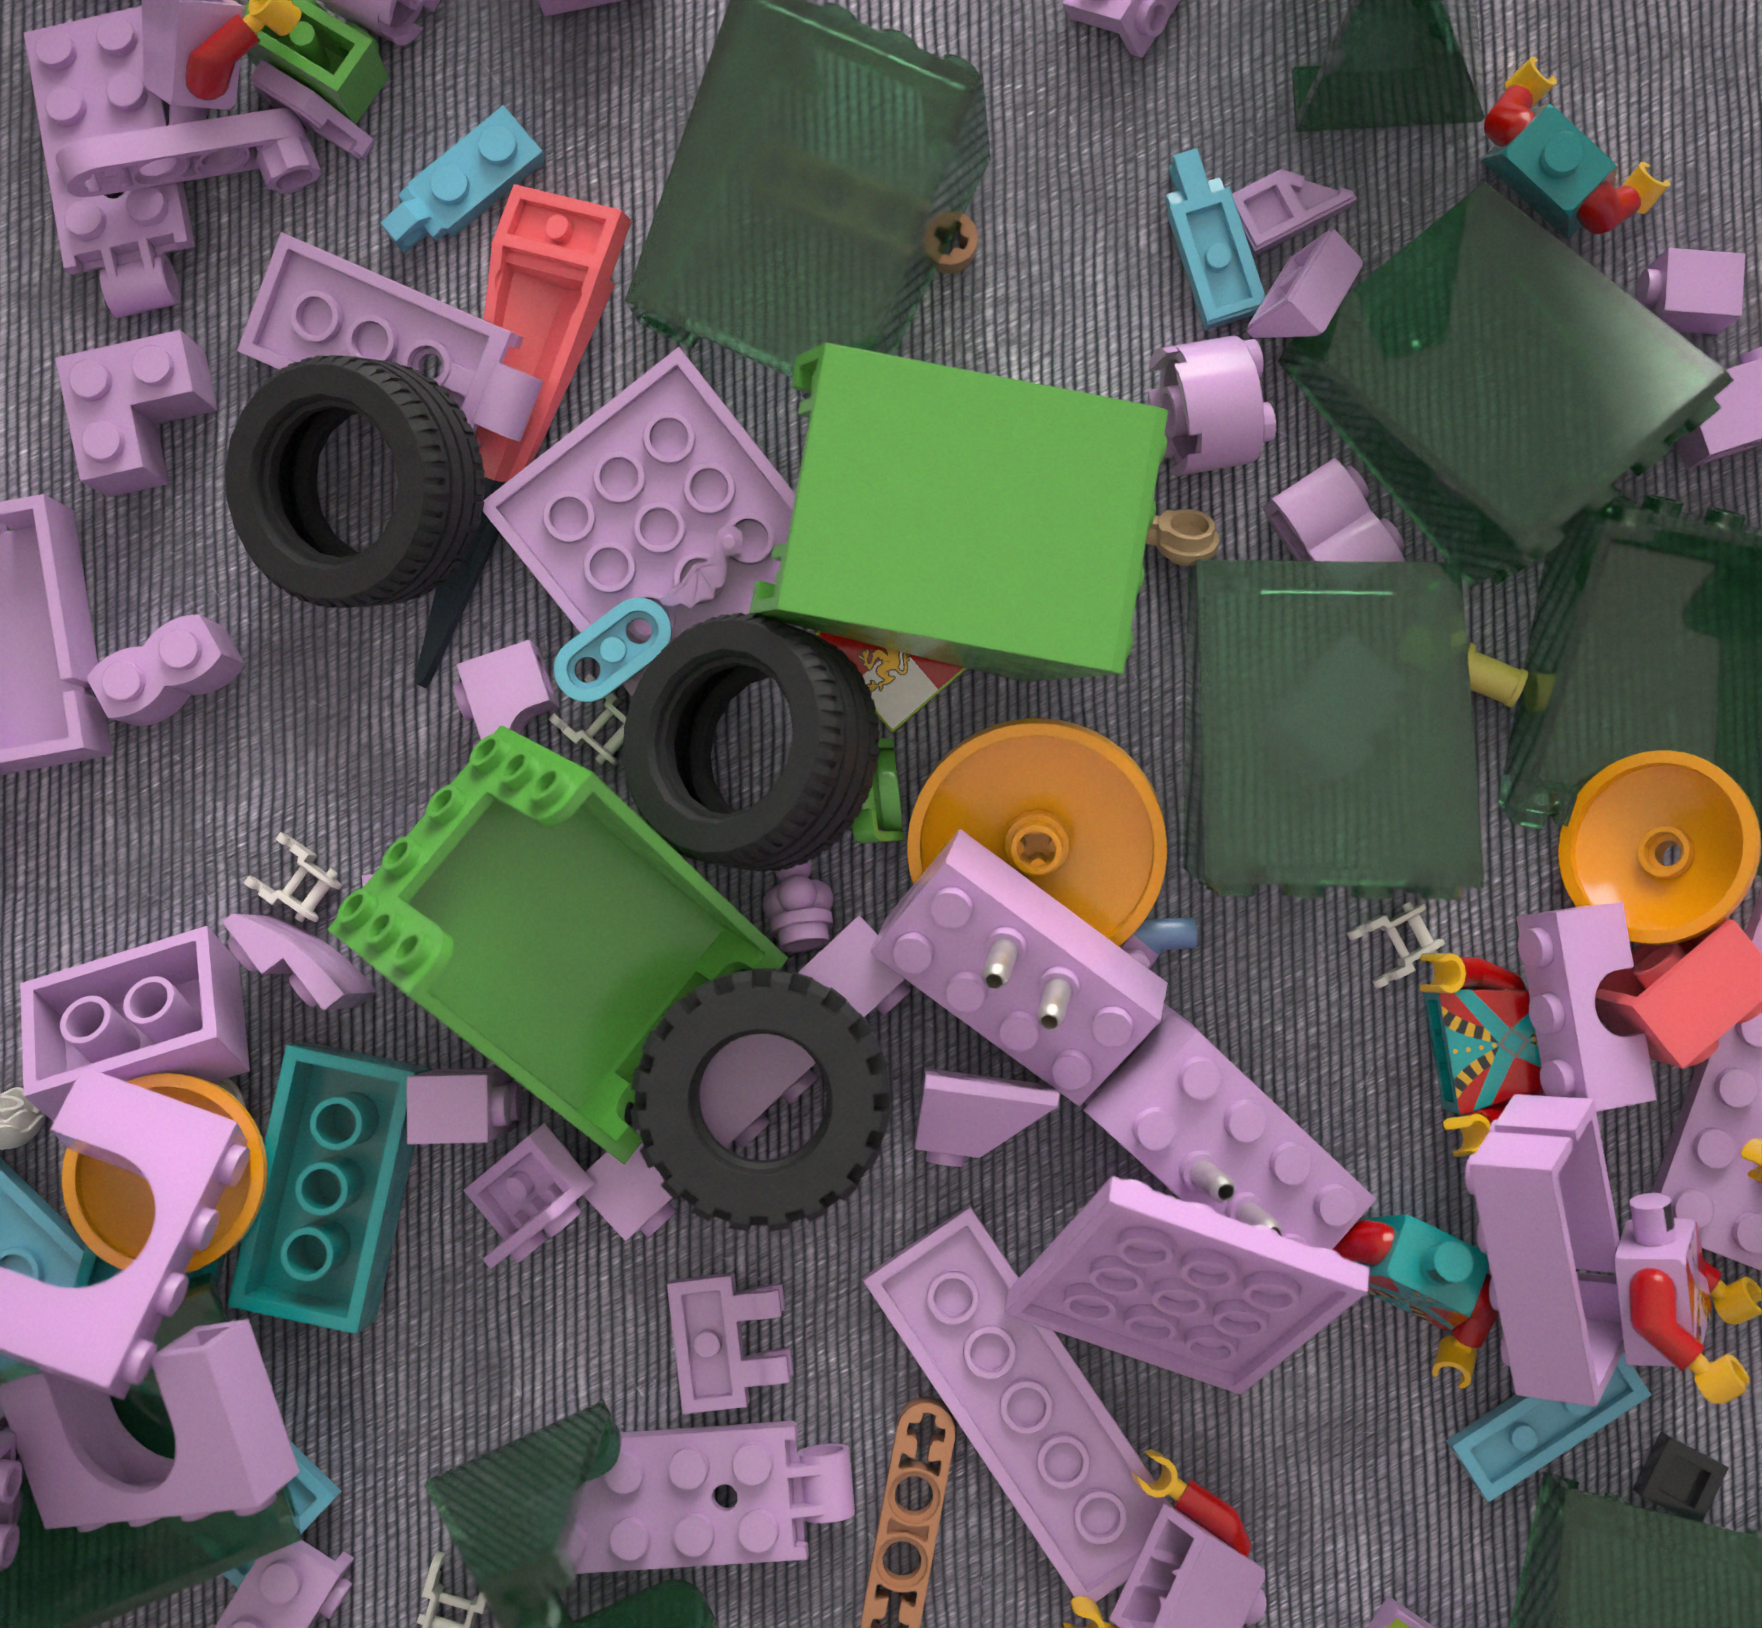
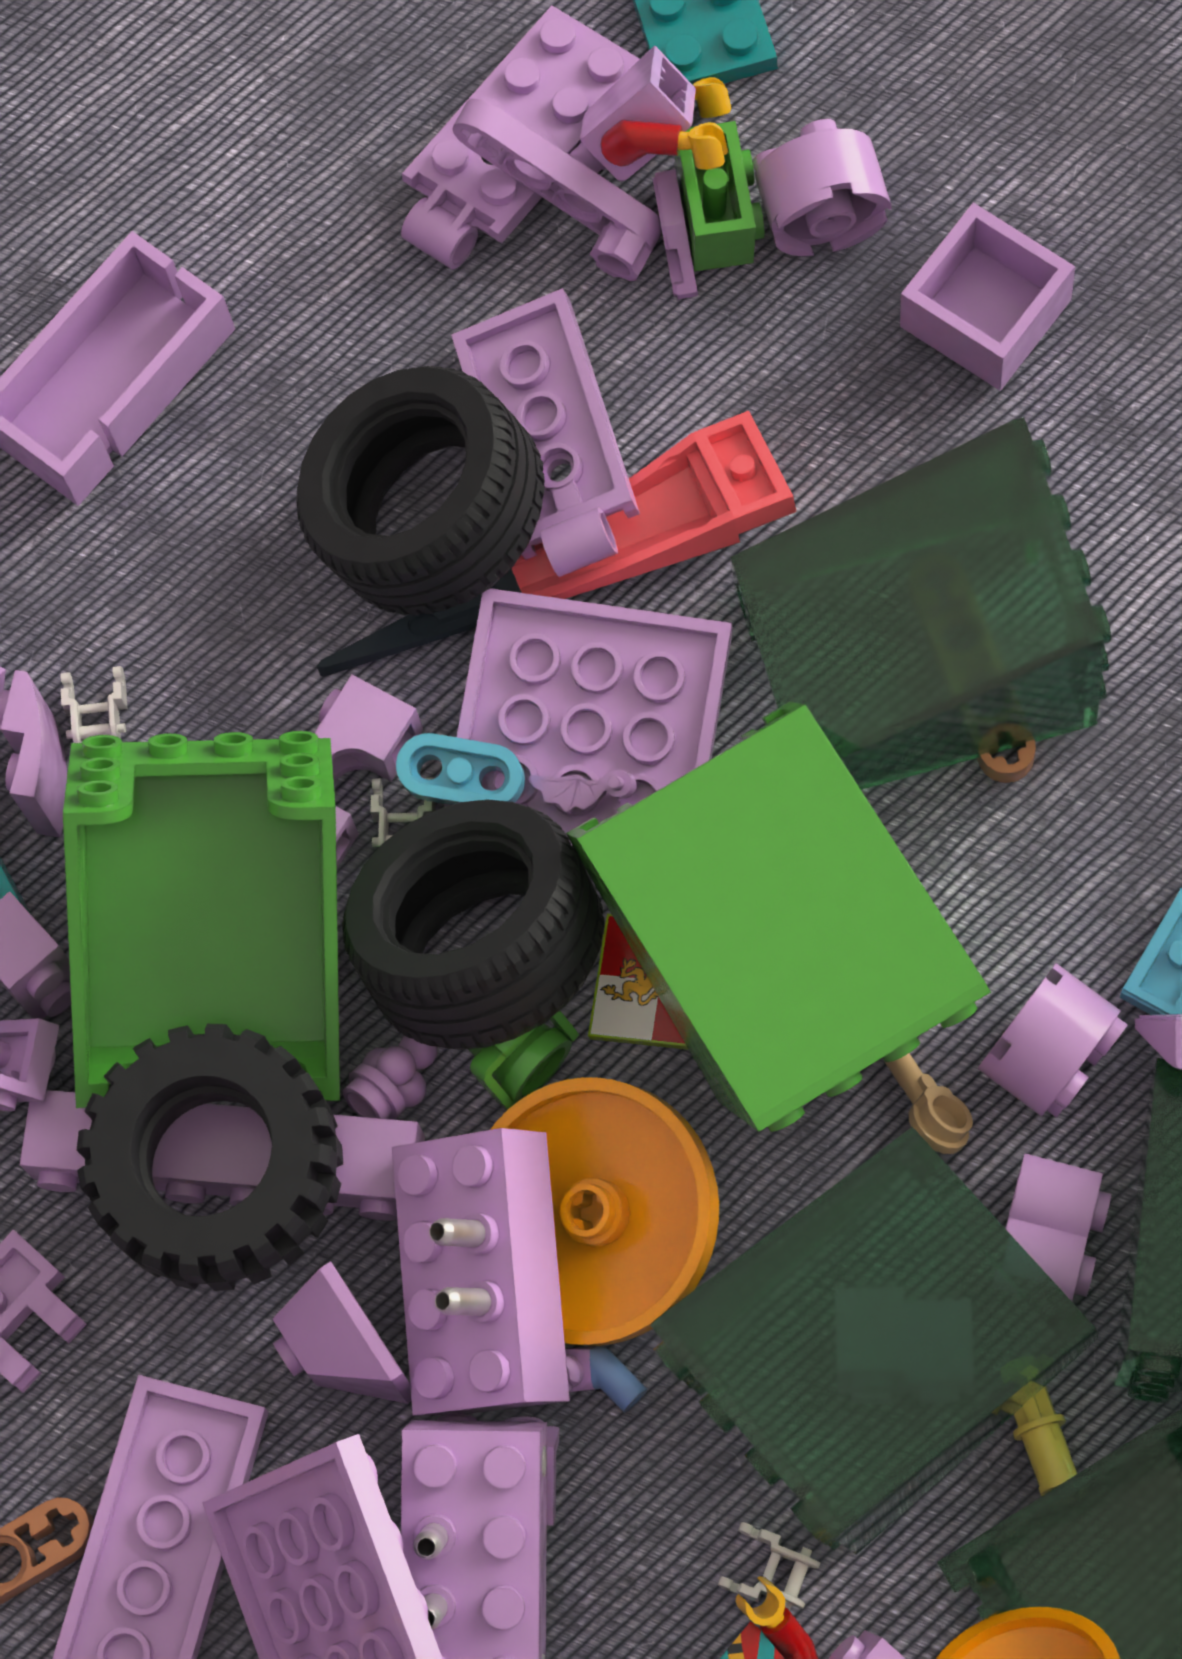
camera: 55 degrees right, 15 degrees down
(118, 399) = (339, 290): lavender brick -> none
(156, 680) = (167, 487): lavender brick -> none
(464, 181) = (723, 378): medium azure hinge -> none

